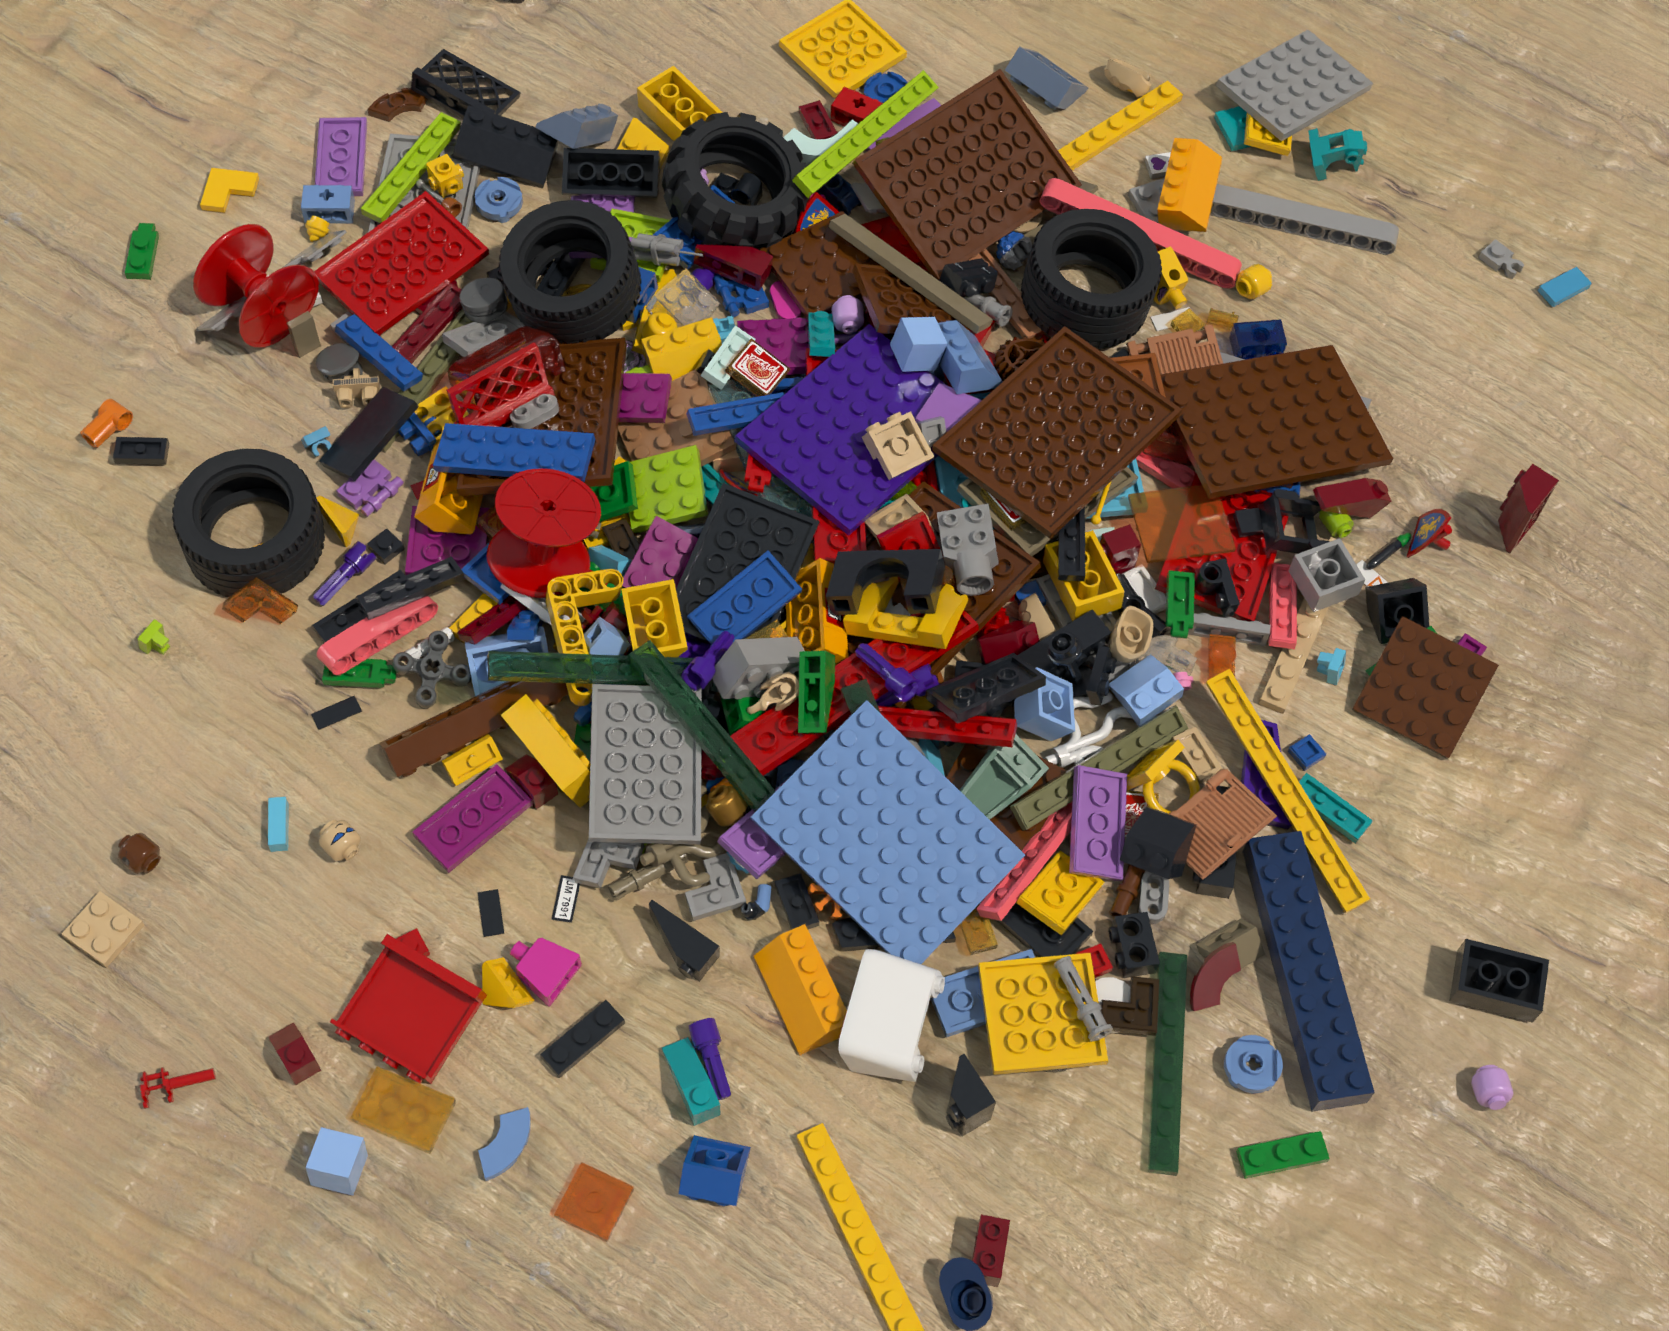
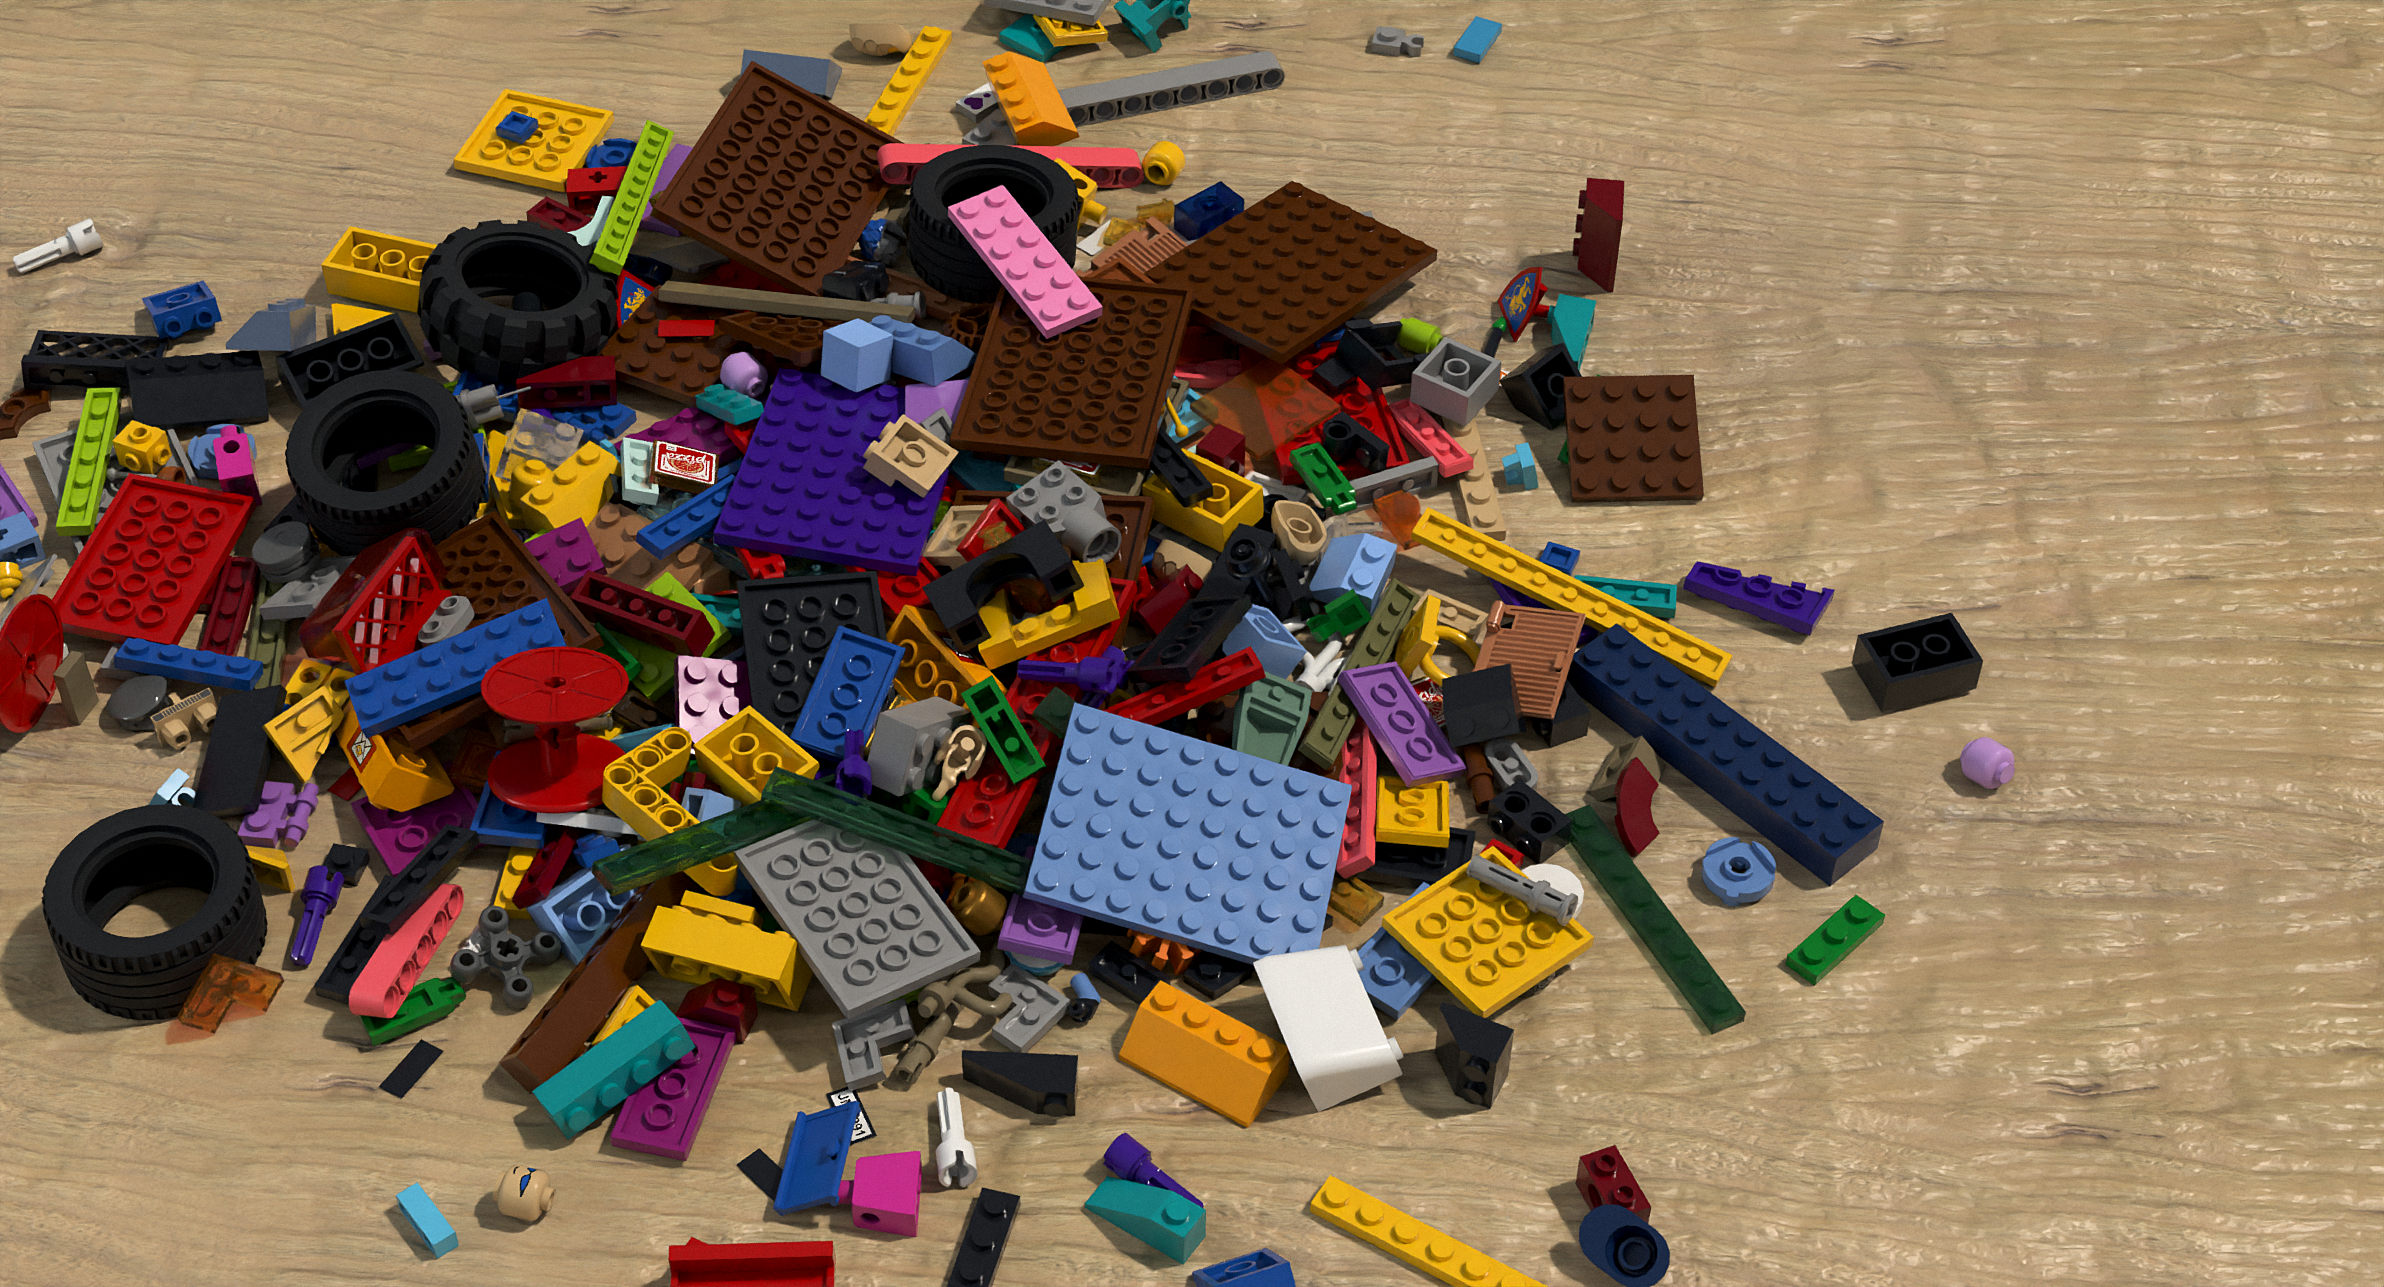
camera: 30 degrees left, 15 degrees down
(153, 638) = (110, 1103): lime tile -> none
(411, 441) = (305, 731): none -> yellow wing
(440, 788) = (614, 1069): none -> teal brick
(492, 219) = (235, 462): none -> dark pink torso
(503, 985) = (851, 1242): yellow slope -> none
(519, 919) = (816, 1158): none -> blue door
(539, 75) = (182, 310): none -> blue plate
(560, 710) = (730, 911): none -> yellow plate
(605, 966) = (955, 1154): none -> white piece
(653, 473) = (642, 615): none -> dark red brick
(783, 303) = (651, 405): dark pink tile -> none
(834, 34) = (517, 127): none -> blue tile
(835, 256) = (684, 328): none -> red sticker
(904, 540) = (994, 534): none -> clear yellow bush
(1075, 330) = (1025, 261): none -> bright pink plate
(1115, 717) = (1343, 614): none -> green plate
(1138, 1014) = (1582, 875): dark brown tile -> none
(1355, 497) = (1427, 301): dark red slope -> none
(1435, 870) = (1758, 596): none -> dark purple wing
(1454, 569) = (1572, 324): none -> teal slope

